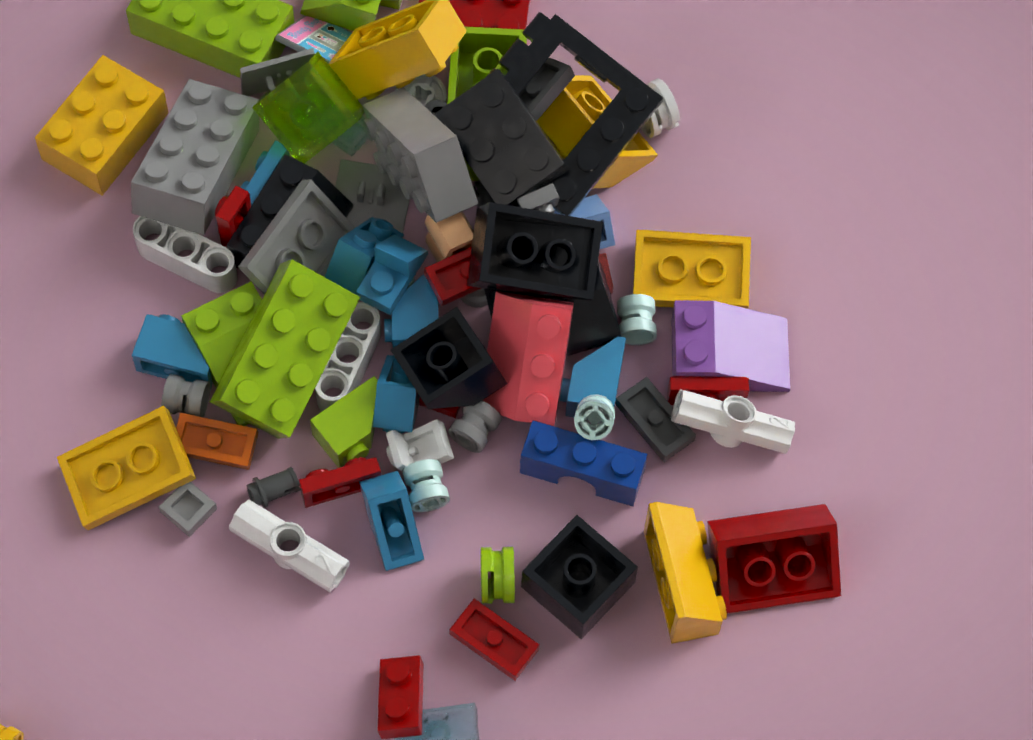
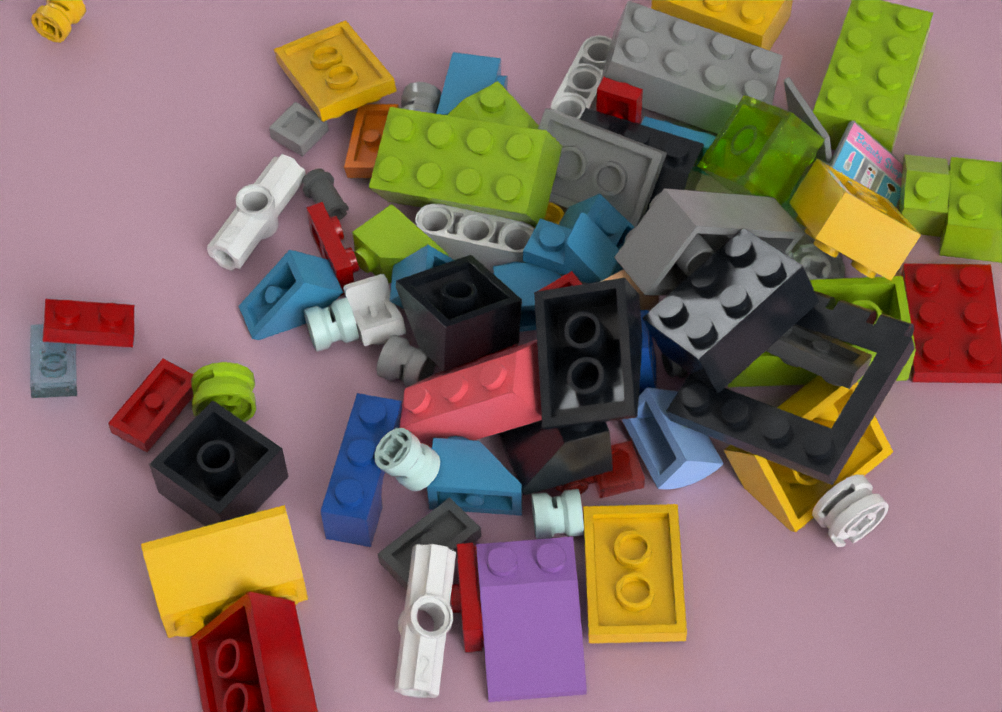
camera: 90 degrees right, 10 degrees down
(541, 199) = (664, 364): light grey plate -> none

